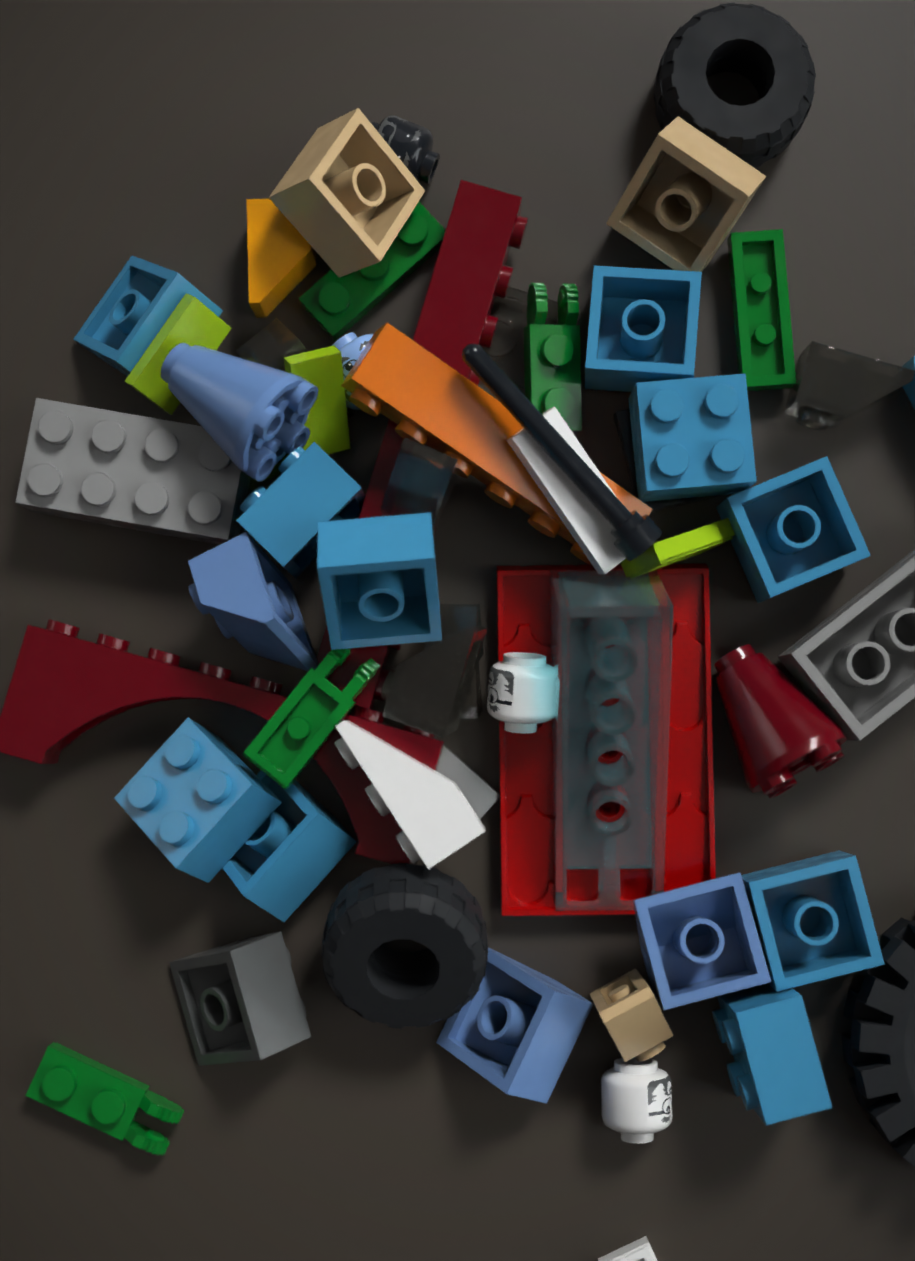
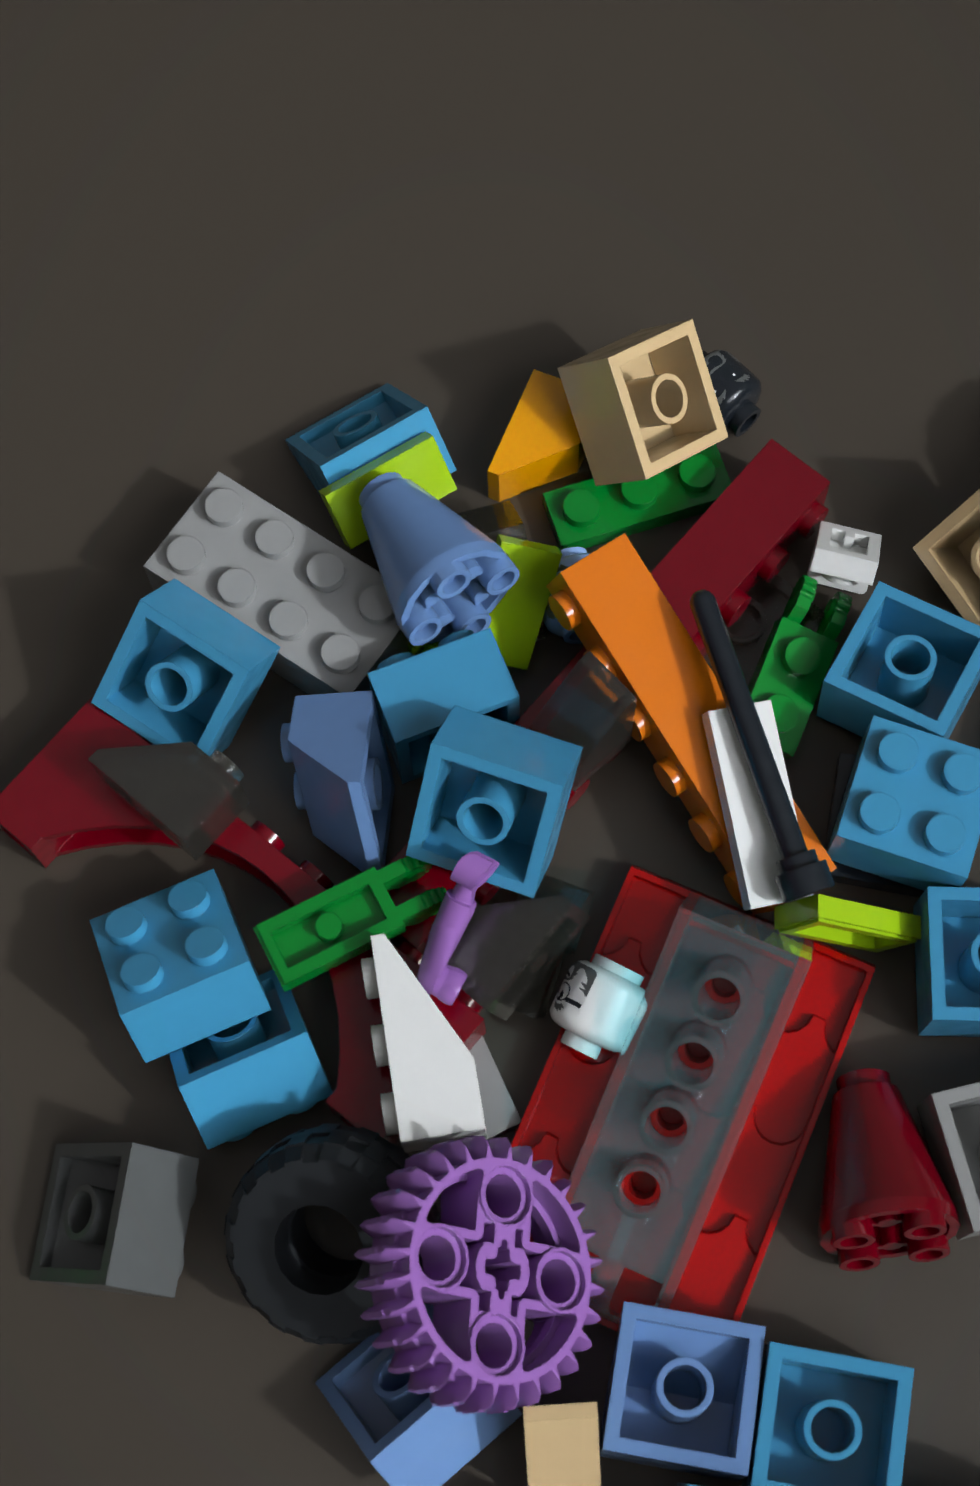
camera: 25 degrees right, 15 degrees down
(91, 575) = (184, 670): none -> dark azure brick
(132, 674) = (176, 789): none -> clear smoke slope
(389, 680) = (449, 925): none -> medium lavender arm
(528, 937) = (479, 1275): none -> medium lavender gear
(557, 252) = (845, 557): none -> white bracket

